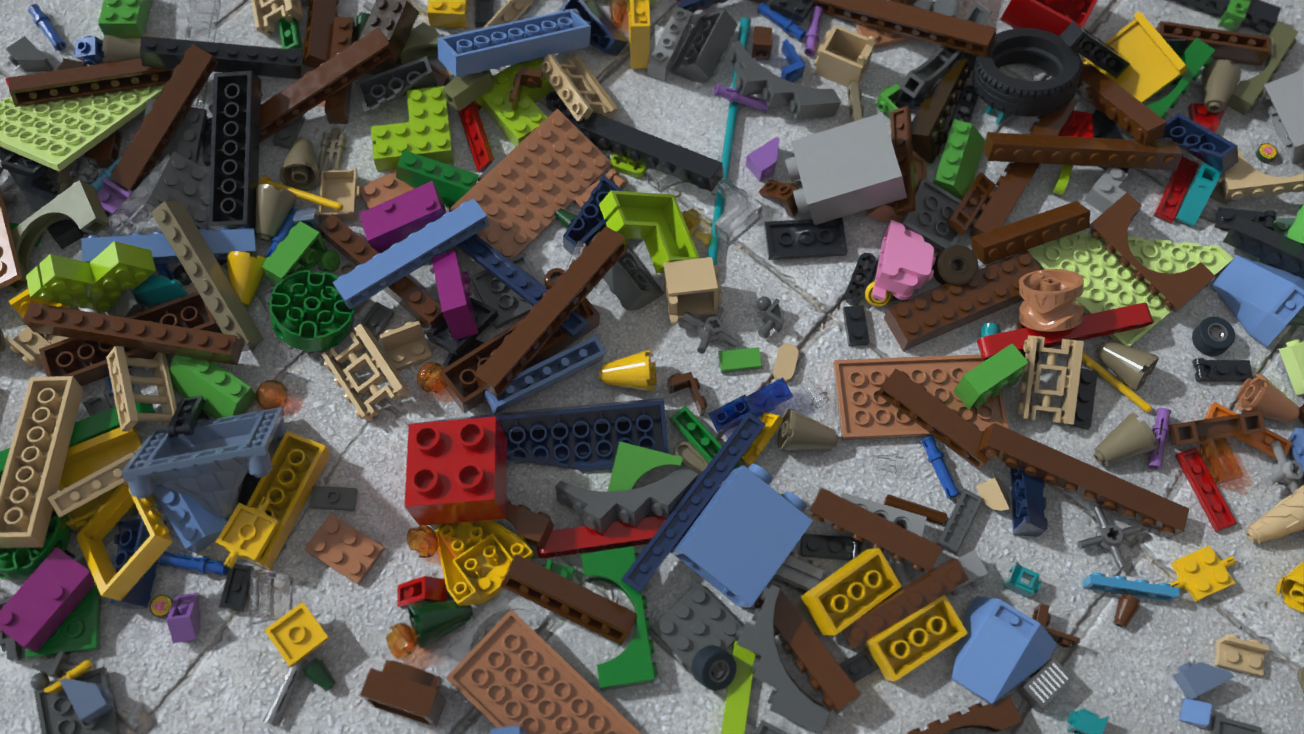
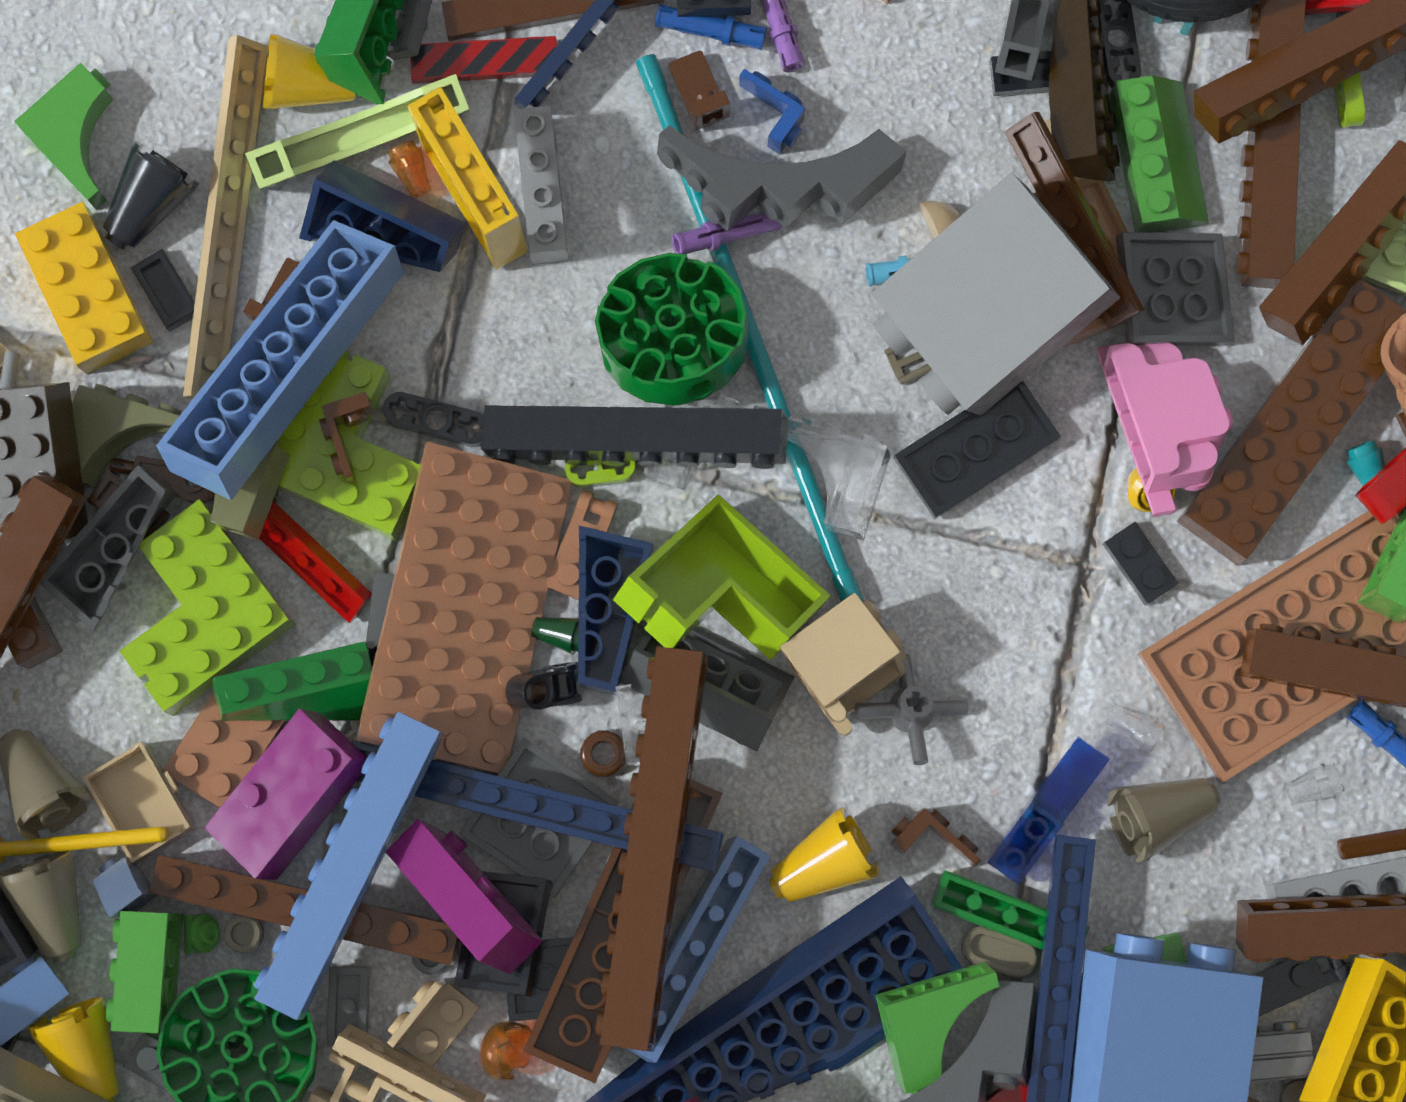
camera: 25 degrees left, 15 degrees up
(283, 233) = (92, 932): blue pin -> none
(335, 132) = (54, 681): dark tan piece -> none
(550, 236) = (550, 687): none -> black piece
(575, 74) = (446, 354): tan fence -> none
(692, 221) = (777, 527): clear yellow piece -> none
(693, 118) = (672, 329): none -> green brick
(705, 46) = (604, 156): dark grey slope -> none
(739, 359) = (984, 732): bright green tile -> none
(763, 160) = (831, 332): medium lavender slope -> none
(771, 317) = (997, 626): dark grey piece -> none
(772, 423) = (1097, 824): yellow hinge -> none
(783, 193) = (891, 384): reddish brown bracket -> none
(785, 362) = (1061, 696): tan tile -> none
(844, 56) = (875, 52): tan container -> none
(854, 97) = (933, 143): dark tan plate -> none
(859, 271) = (1092, 446): black beam -> none
(886, 99) = (980, 107): bright green bracket -> none
(964, 259) = (1256, 374): dark brown hose -> none
(971, 203) = (1221, 231): reddish brown plate -> none

